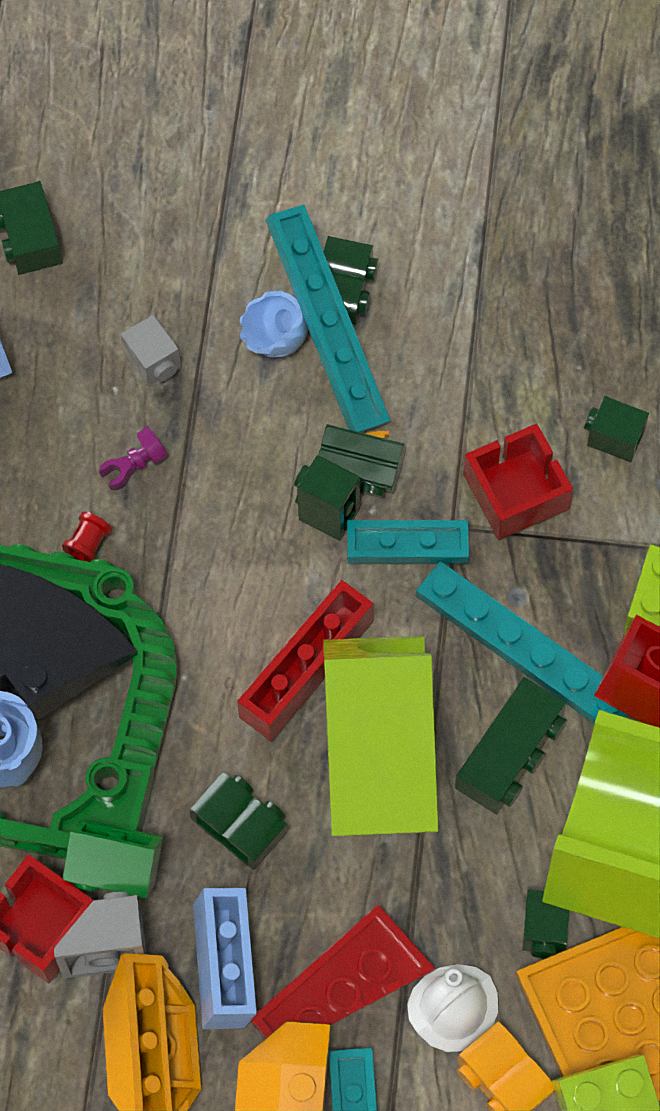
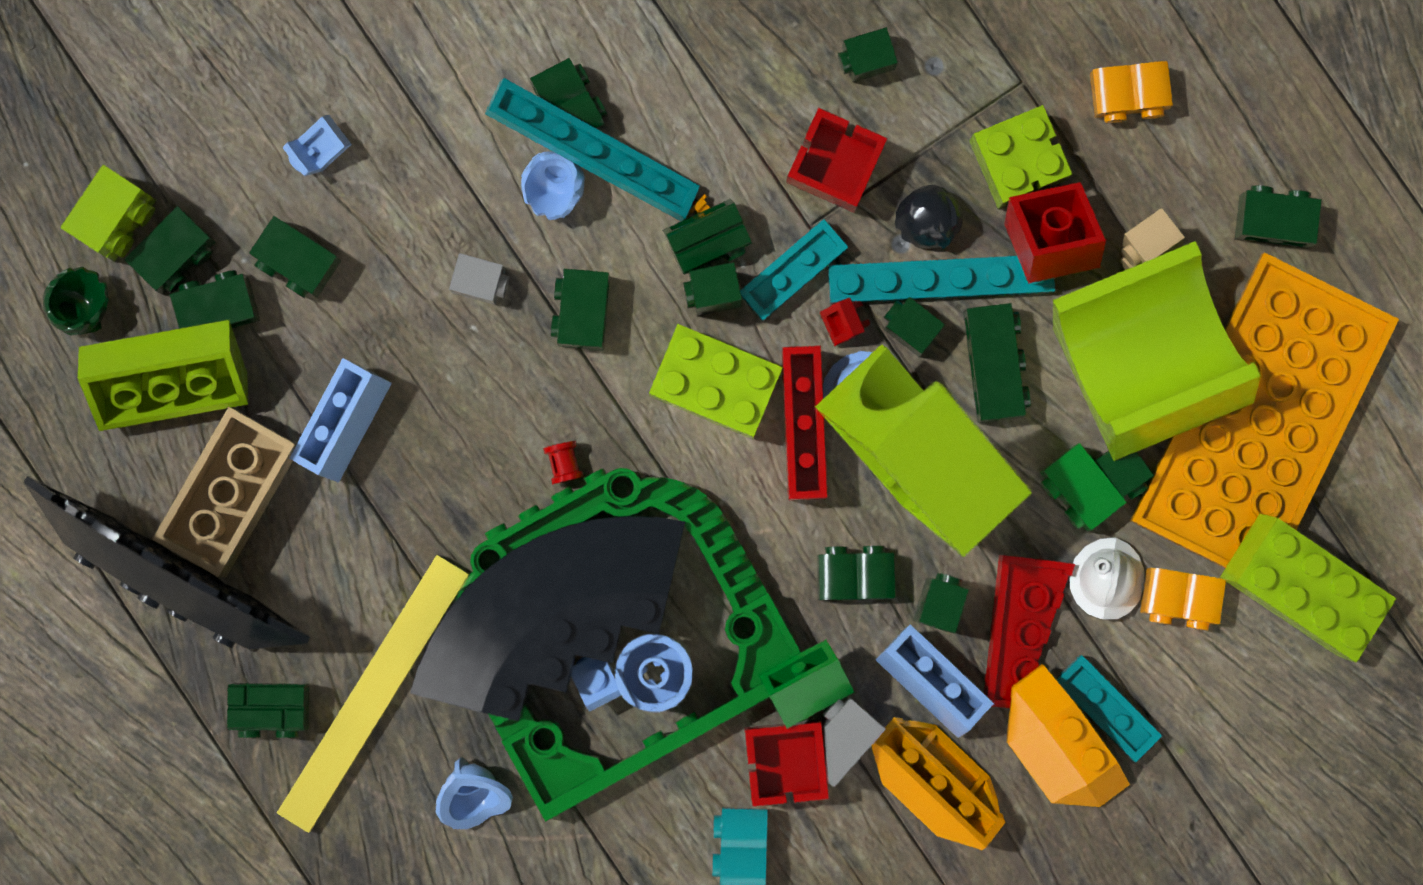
camera: 45 degrees left, 20 degrees up
(121, 167) = (317, 147): none -> light blue bracket
(150, 449) = (542, 370): magenta piece -> none
(210, 436) = (582, 309): none -> dark green brick
(263, 572) = (715, 381): none -> lime brick
(287, 895) = (941, 603): none -> dark green brick
(412, 612) = (843, 321): none -> red tile
(467, 661) = (912, 325): none -> dark green brick
(496, 908) = (1081, 488): none -> green brick
(558, 589) = (929, 217): none -> black hair

